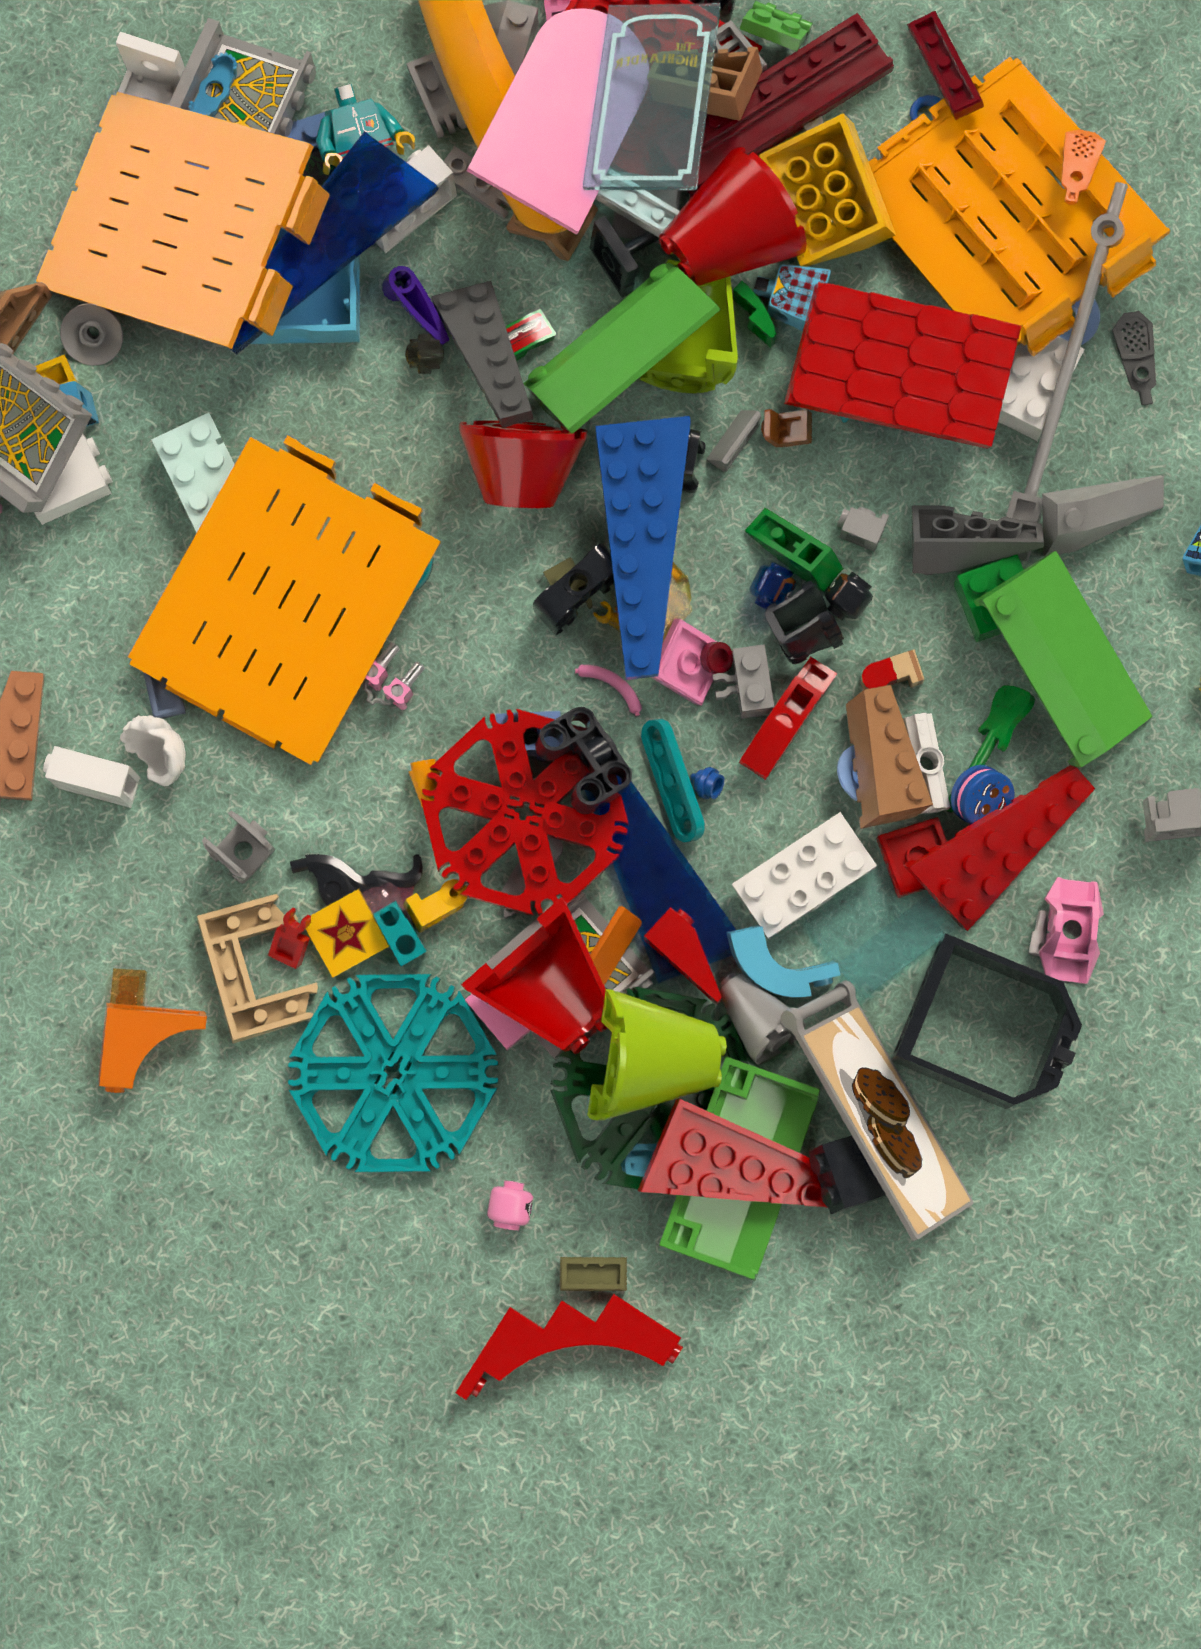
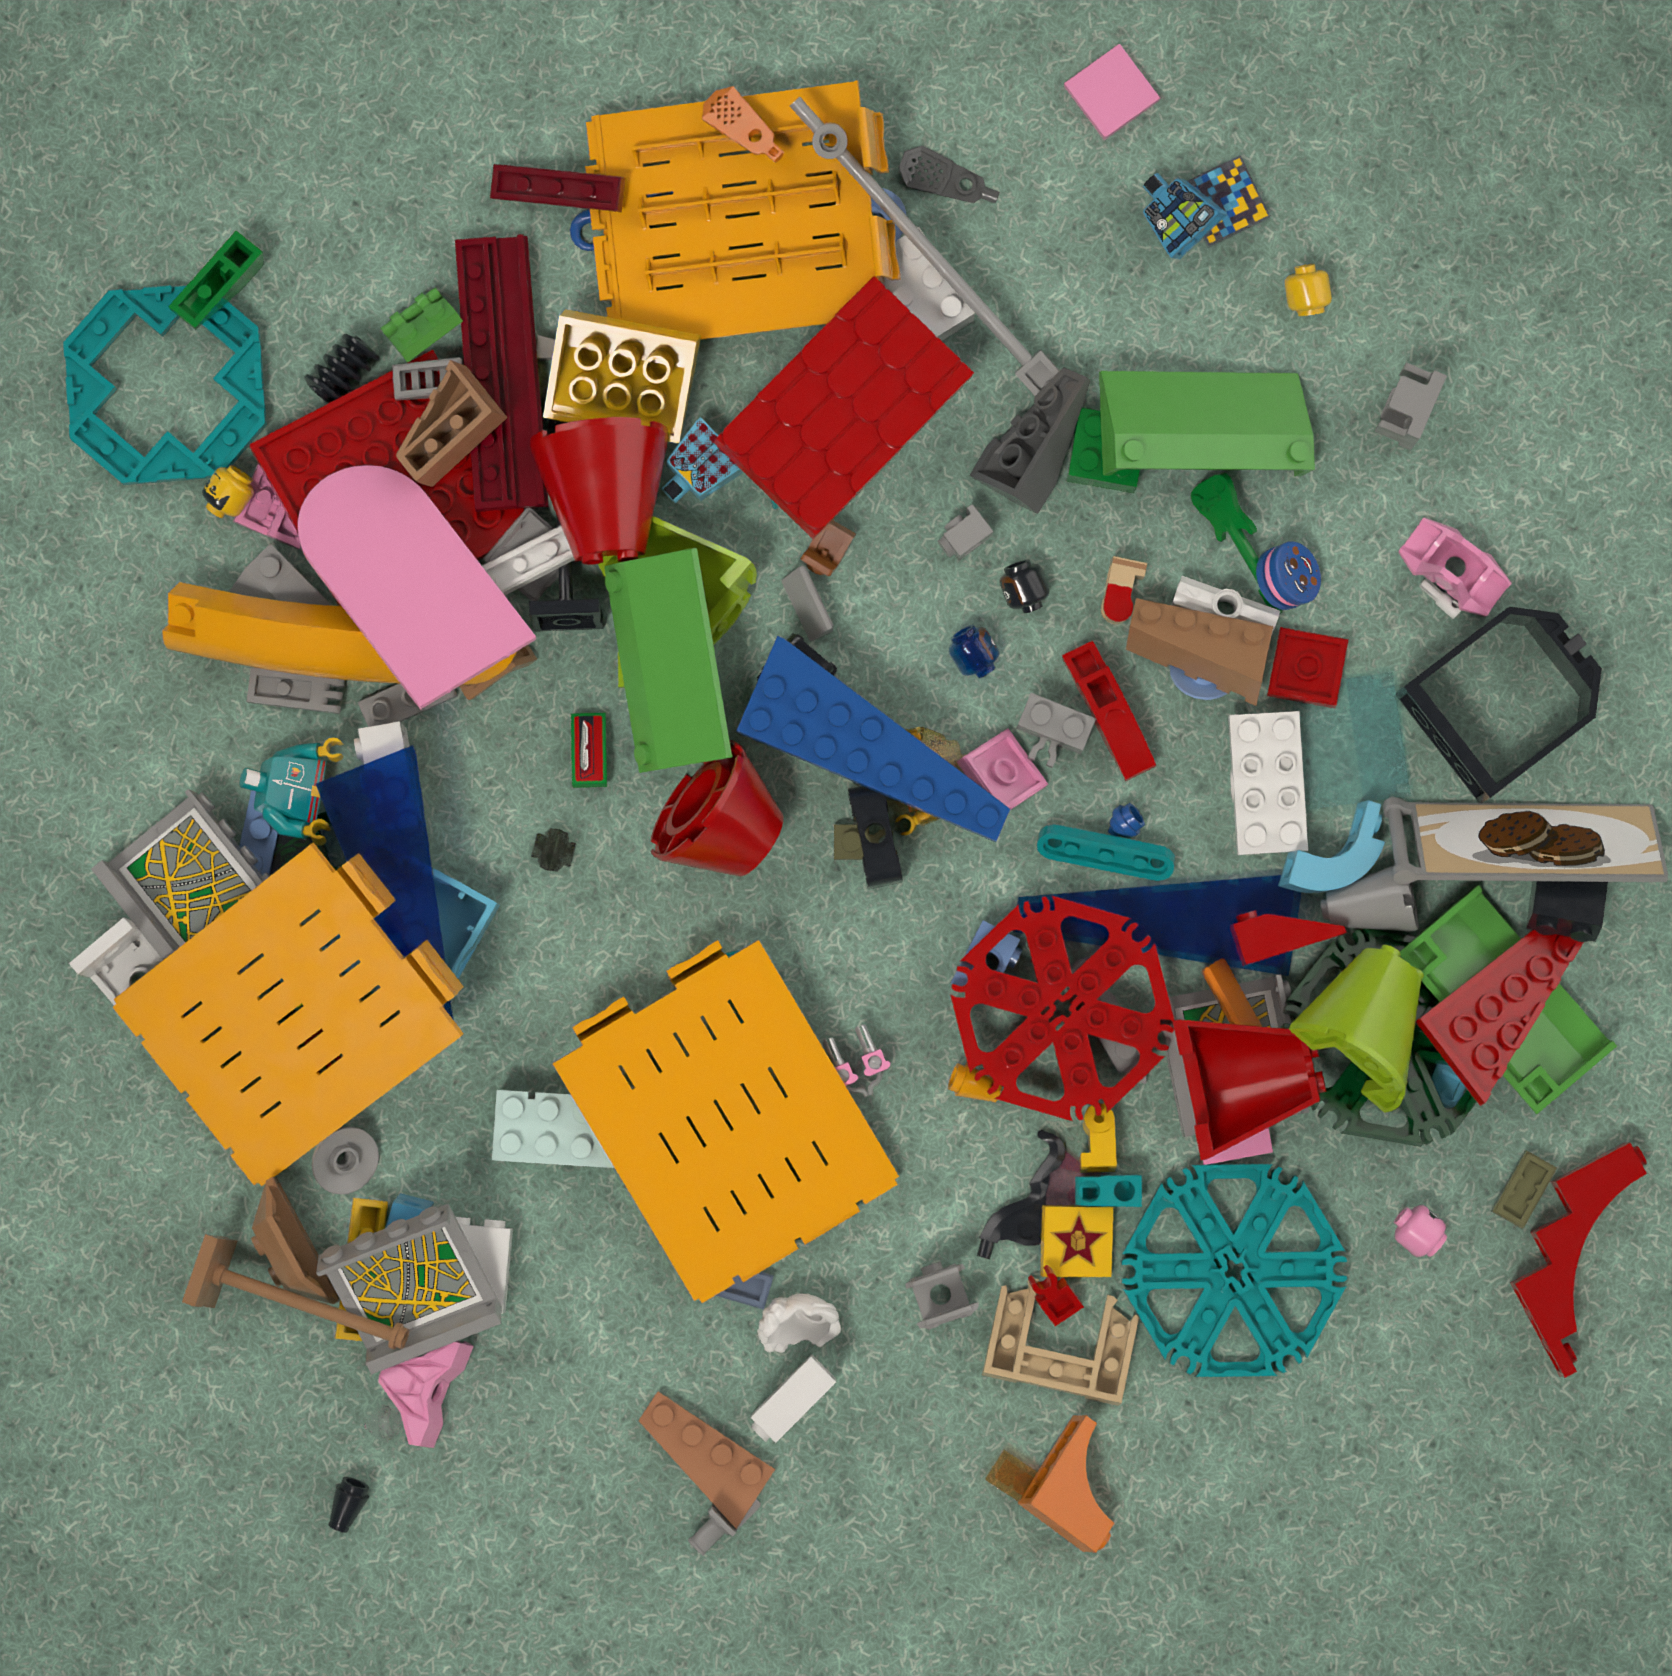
camera: 65 degrees left, 5 degrees up
(222, 72) = (151, 885): dark azure piece -> none
(415, 301) = (495, 829): dark purple piece -> none
(482, 338) = (569, 786): dark grey wing -> none
(596, 752) = (1051, 909): black beam -> none
(615, 681) = (978, 851): bright pink piece -> none
(652, 97) = (440, 488): clear light blue piece -> none
(716, 657) = (1013, 744): dark red tile -> none
(760, 320) = (709, 511): green slope -> none
(795, 549) = (949, 609): green slope -> none
(814, 636) = (1050, 637): black piece -> none
(990, 853) = (1343, 595): red wing -> none
(1089, 513) = (1075, 315): light grey wedge -> none

